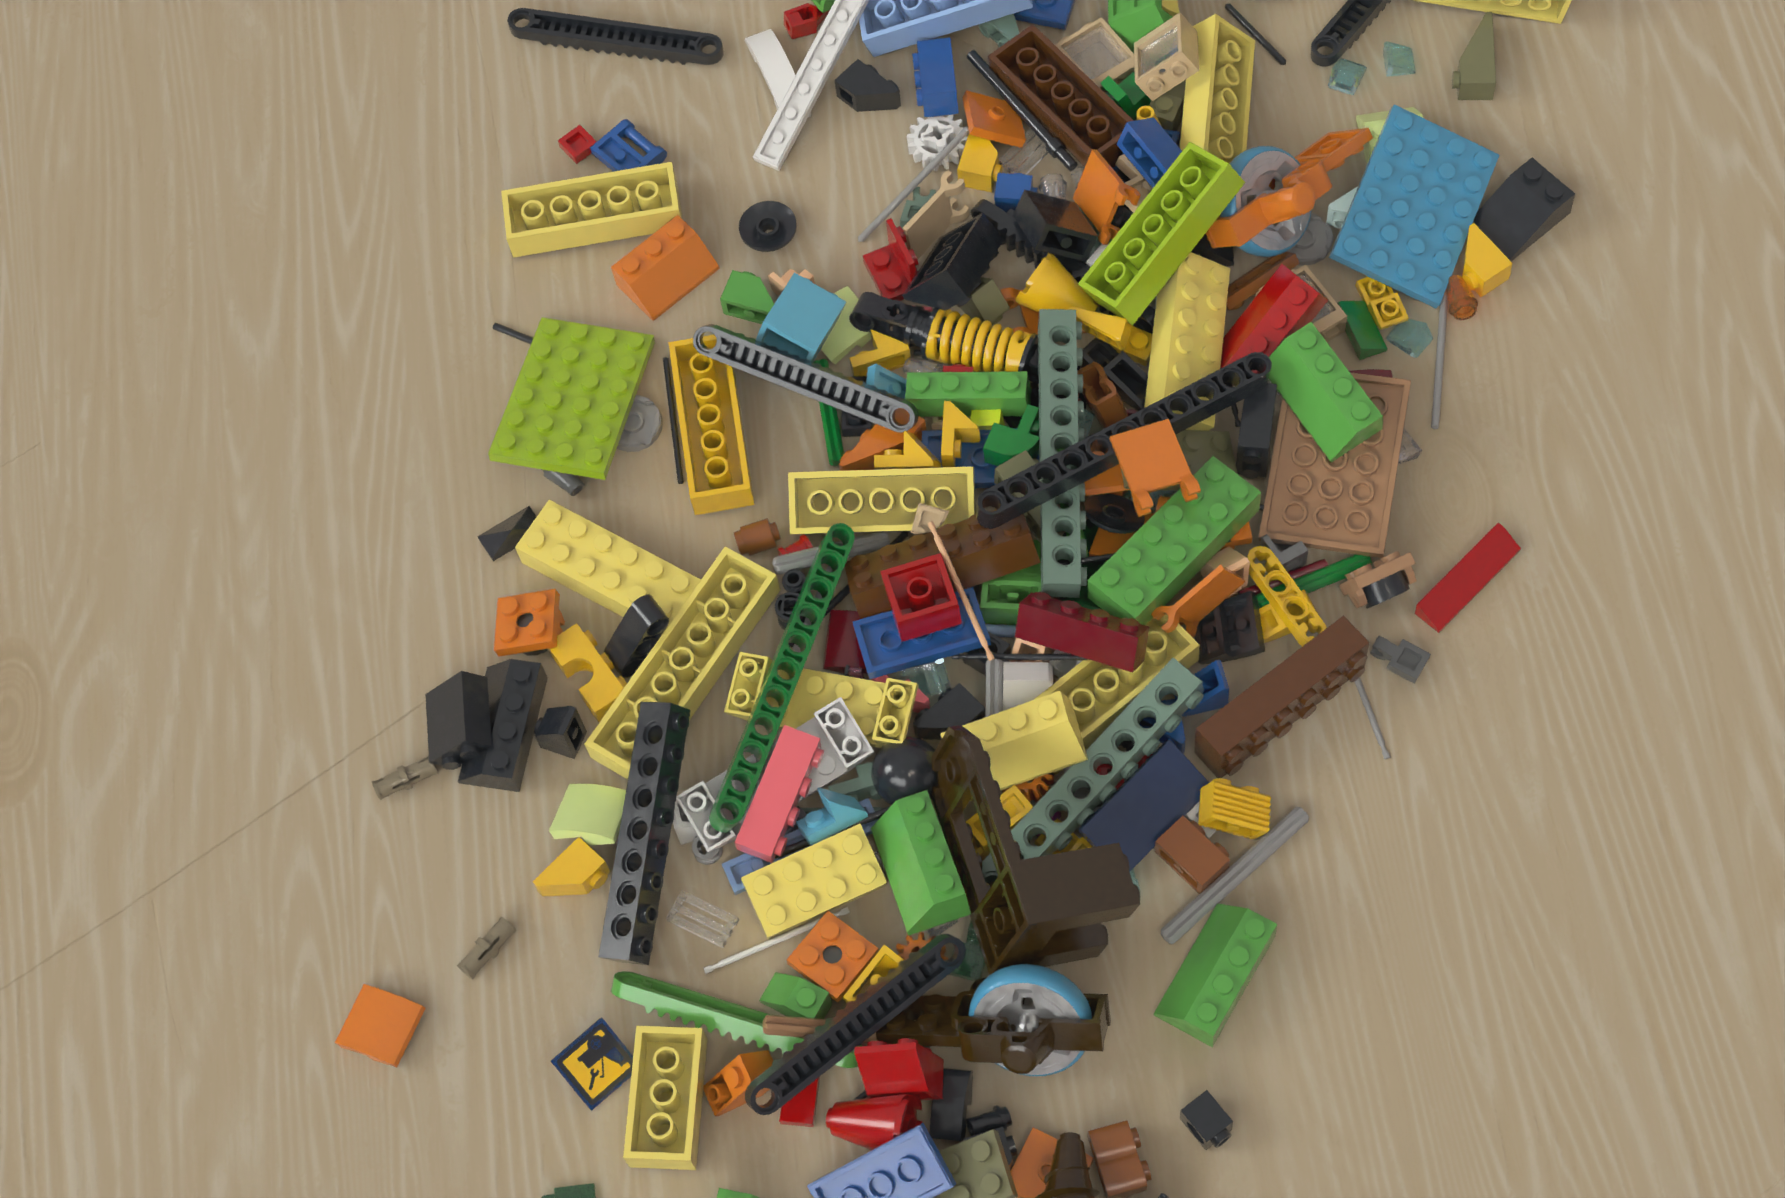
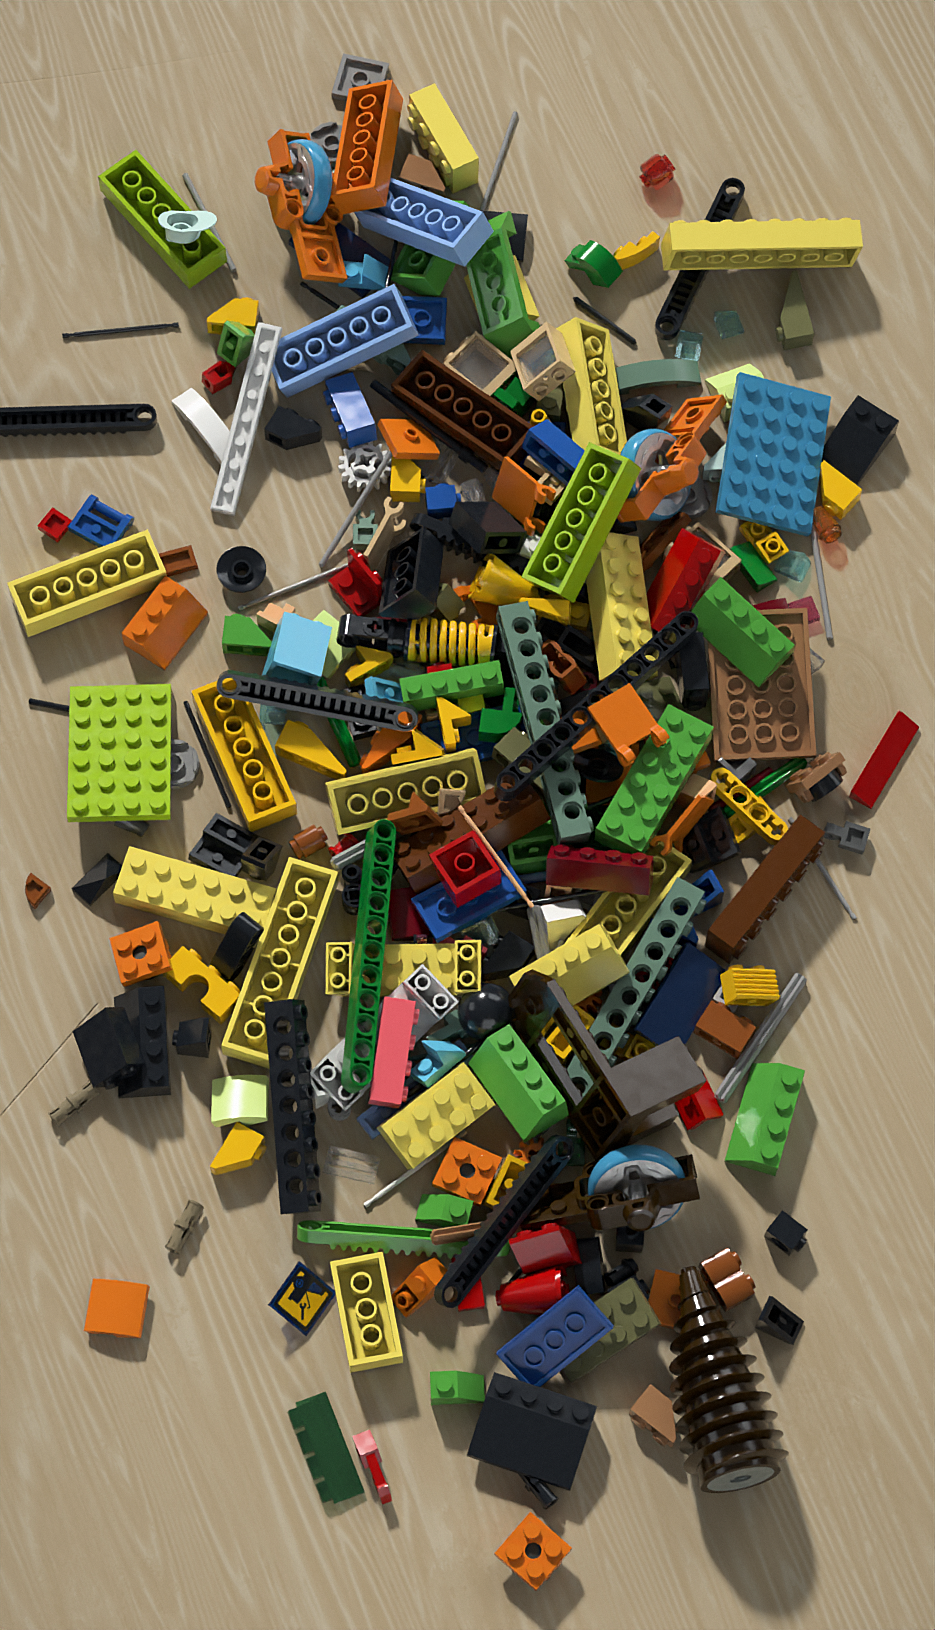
camera: 25 degrees left, 5 degrees up
(437, 531) = (36, 890): none -> dark orange tile
(661, 524) = (222, 846): none -> black slope
(694, 543) = (261, 858): none -> black slope
(701, 207) = (178, 560): none -> dark orange tile
(755, 388) = (271, 715): none -> clear light blue panel
(780, 431) = (303, 747): none -> yellow slope
(819, 257) = (292, 587): none -> light grey piece
(880, 529) = (415, 818): none -> dark orange slope
(1009, 1084) = (629, 1240): none -> black brick
(1138, 935) = (699, 1107): none -> red panel
(1279, 133) = (646, 412): none -> black slope
(1301, 98) = (657, 373): none -> sand green slope
(1418, 391) = (813, 615): none -> clear pink tile

